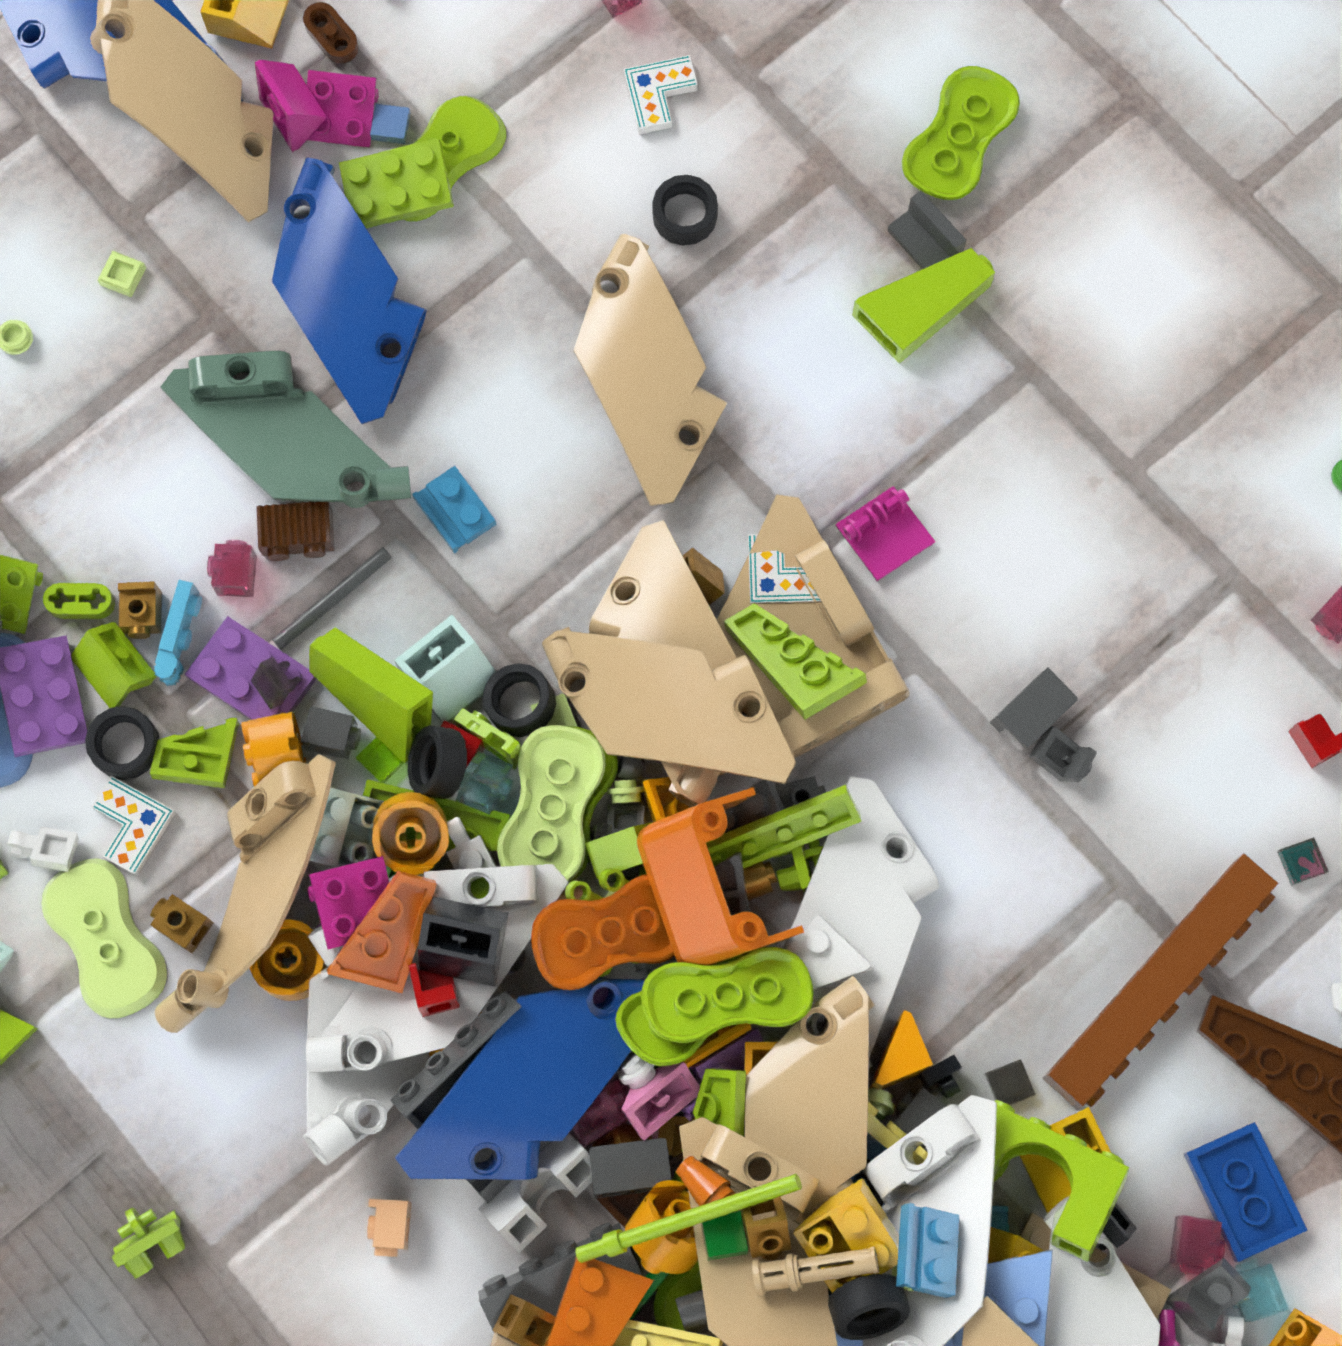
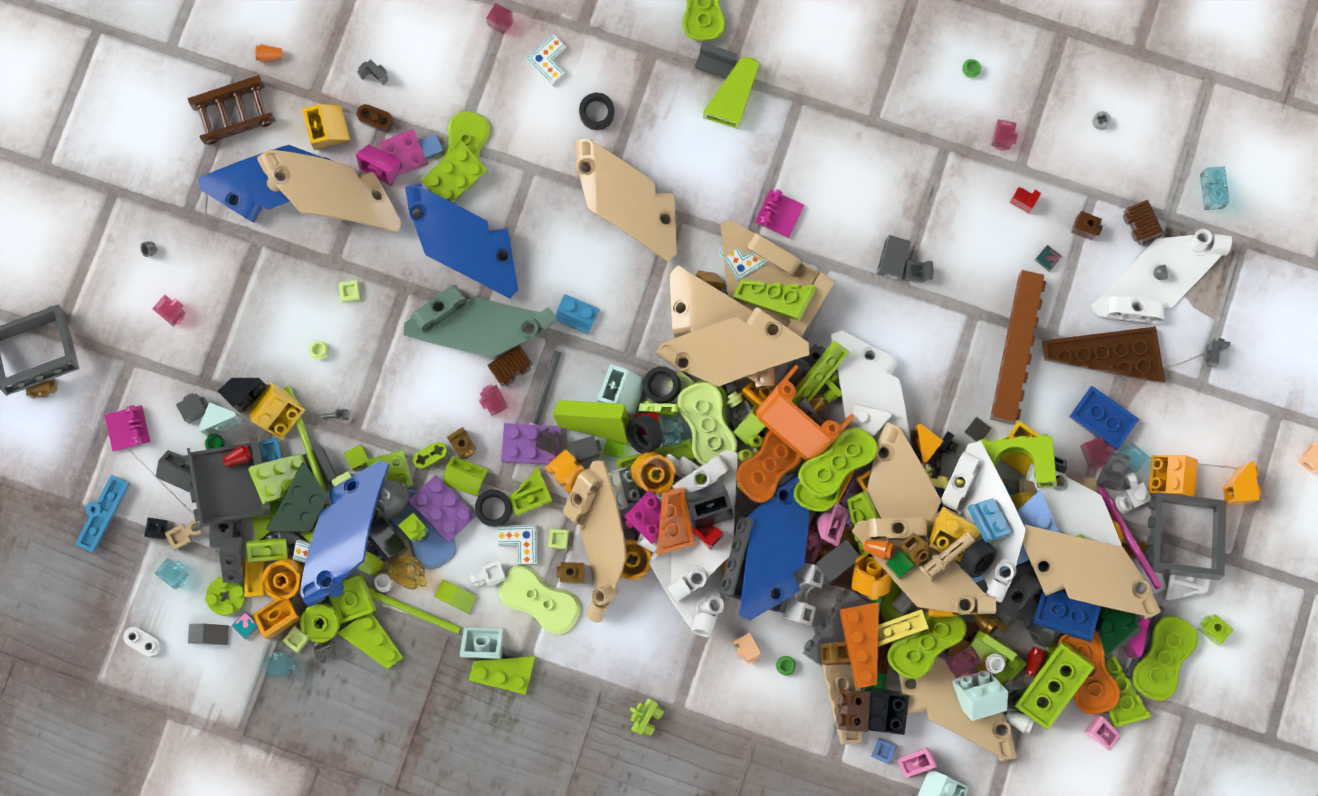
camera: 30 degrees left, 5 degrees up
(176, 632) = (487, 445): medium azure hinge -> none
(196, 855) = (558, 539): none -> yellowish green tile
(438, 1295) = (785, 665): none -> bright green plate
(617, 1242) = (855, 594): lime bar -> none
(636, 1072) = (816, 518): white plate -> none

